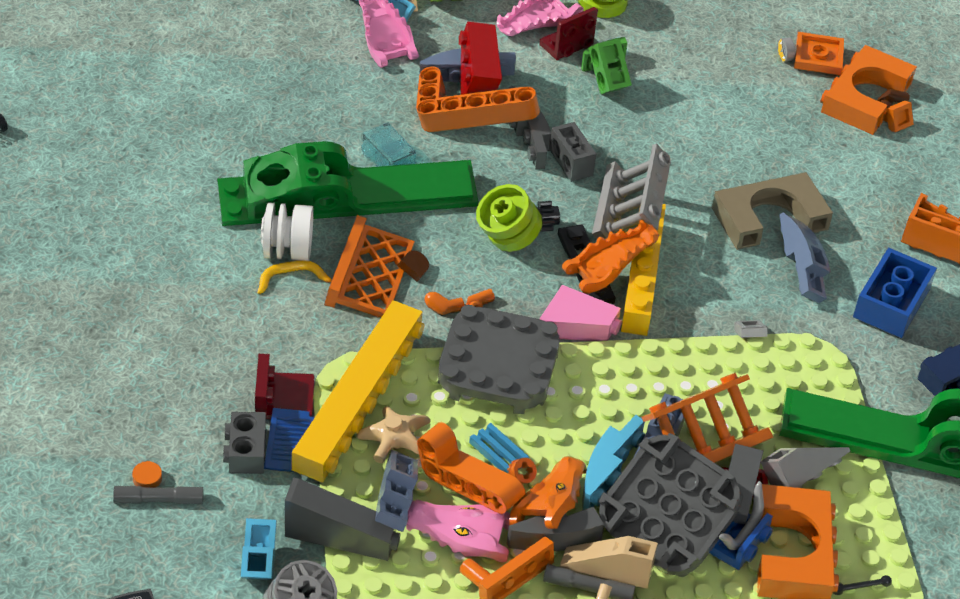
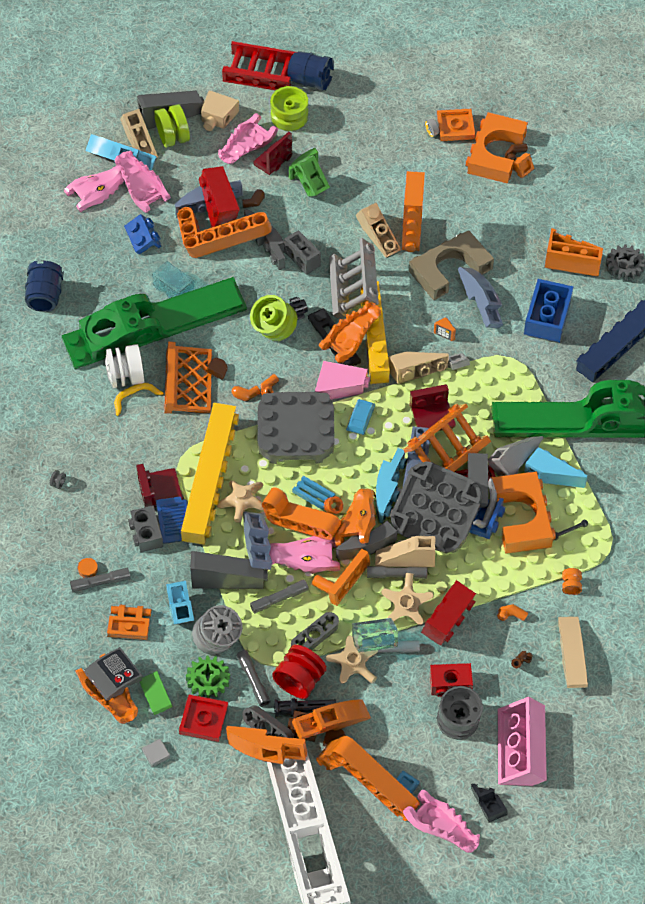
camera: 10 degrees left, 10 degrees up
(147, 352) = (57, 479): none -> dark grey bush
(175, 567) = (129, 627): none -> orange plate
(215, 116) = (43, 285): none -> dark blue piece
(324, 26) = (95, 188): none -> bright pink animal
(368, 88) = (142, 234): none -> blue bracket
(386, 578) = (267, 601): none -> dark grey piece
(532, 80) = (255, 200): none -> reddish brown arm
(595, 367) = (360, 416): none -> dark azure tile
(682, 147) = (377, 229): none -> tan slope
(691, 320) = (414, 365): none -> tan slope
(696, 370) = (430, 406): none -> dark red bracket
(732, 133) = (413, 211): none -> orange arch
(743, 285) = (445, 329): none -> slope
(858, 498) = (554, 470): none -> medium azure slope

